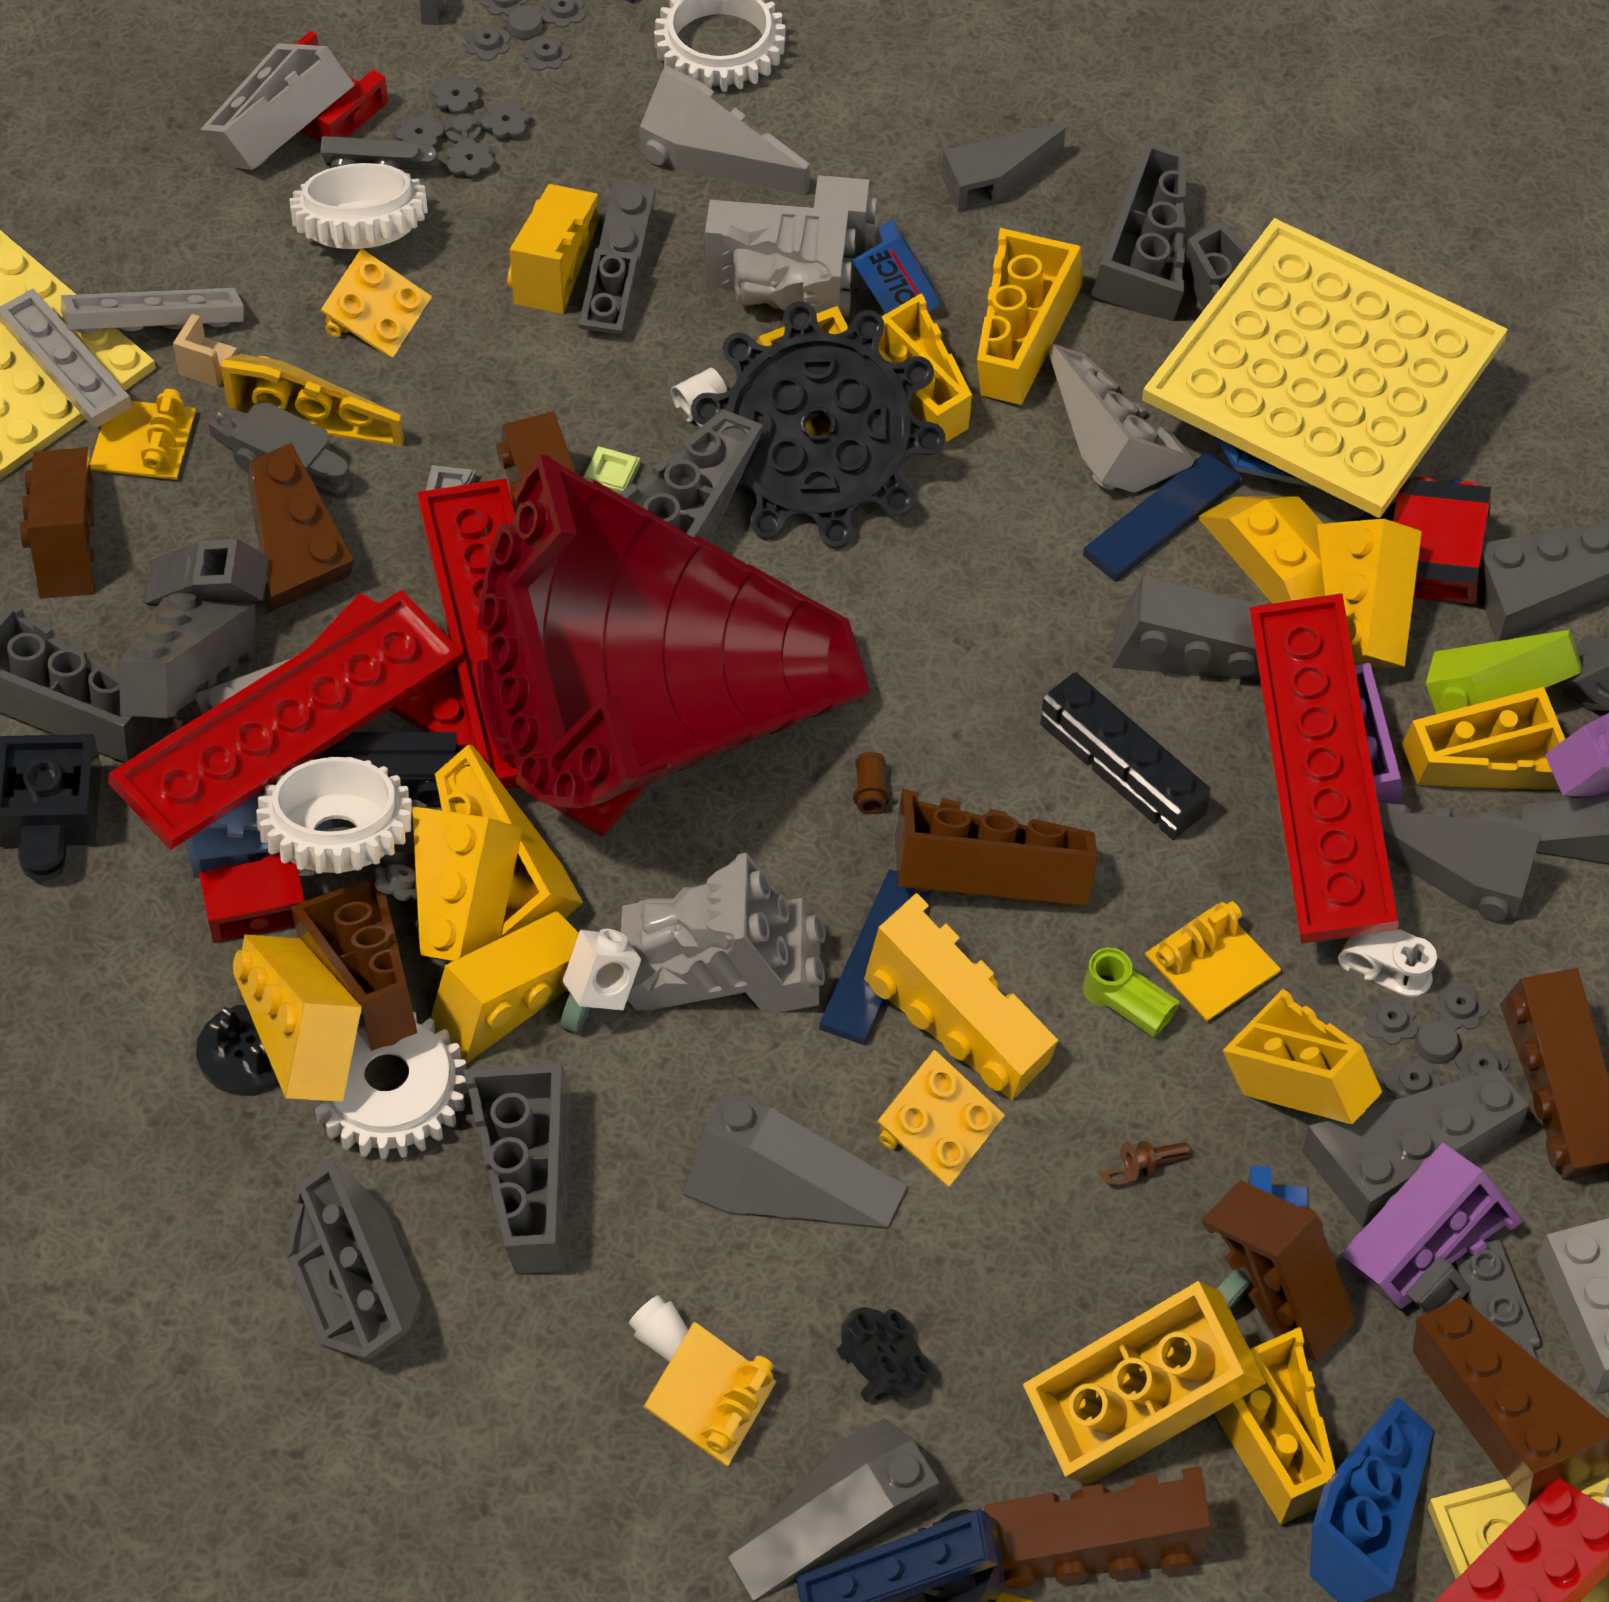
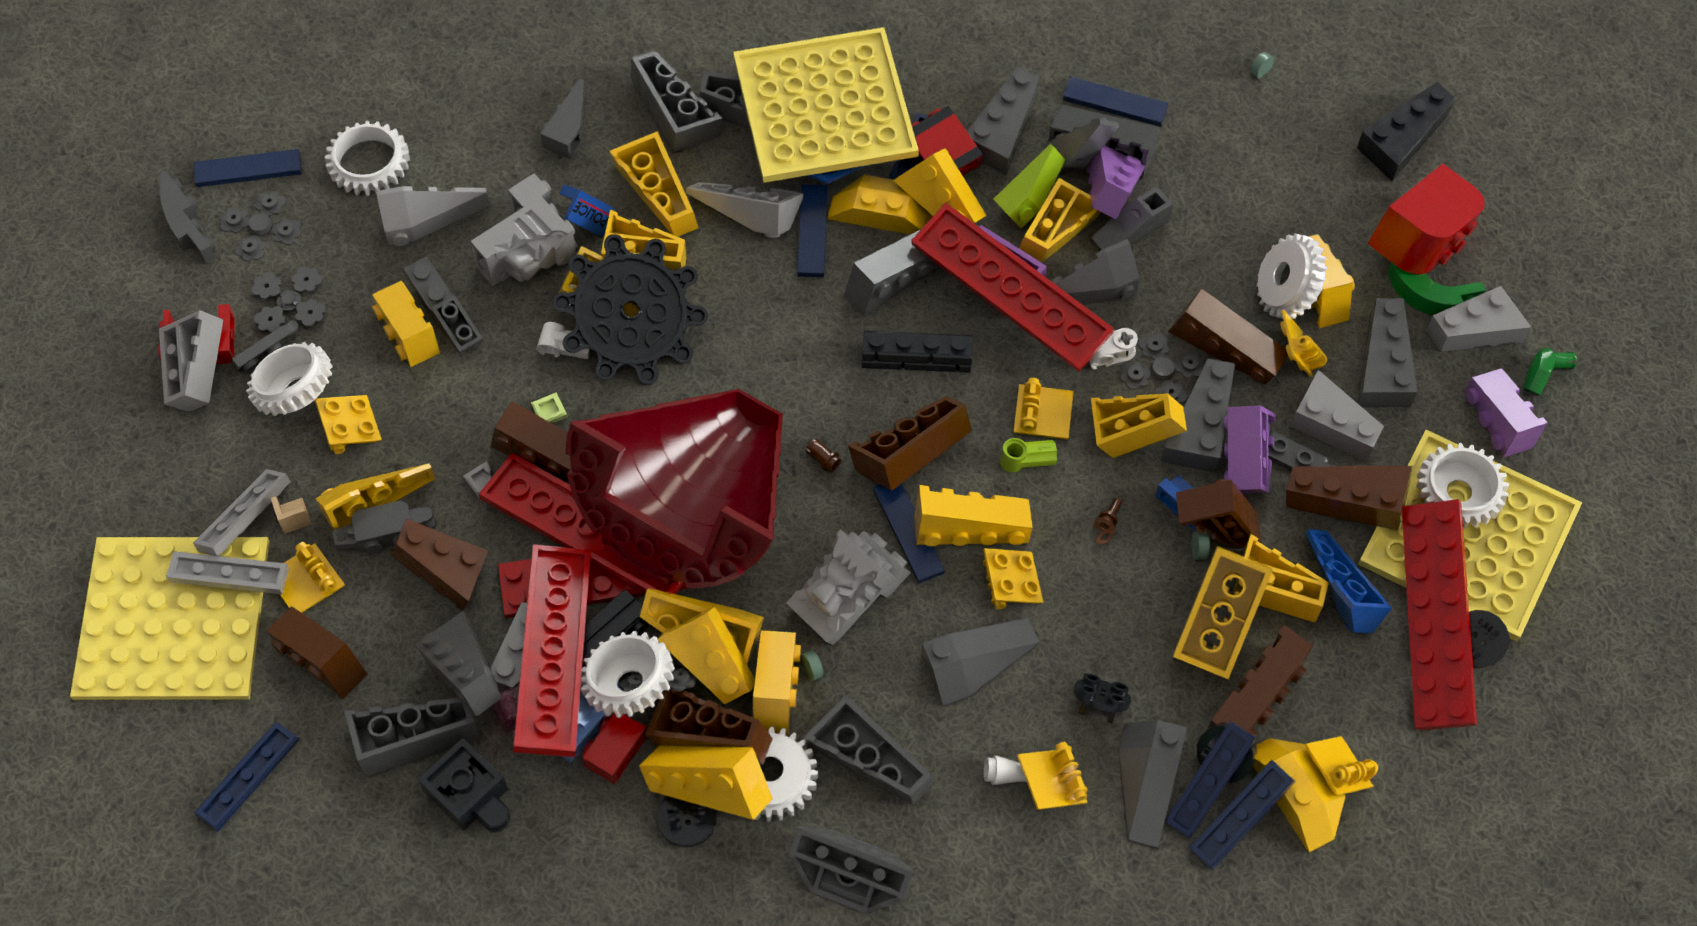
camera: 45 degrees left, 5 degrees up
(210, 572) = (424, 618): dark grey slope -> none
(601, 969) = (816, 638): white brick -> none
(701, 477) = (603, 379): dark grey wedge -> none
(1437, 1286) = (1276, 471): dark grey tile -> none

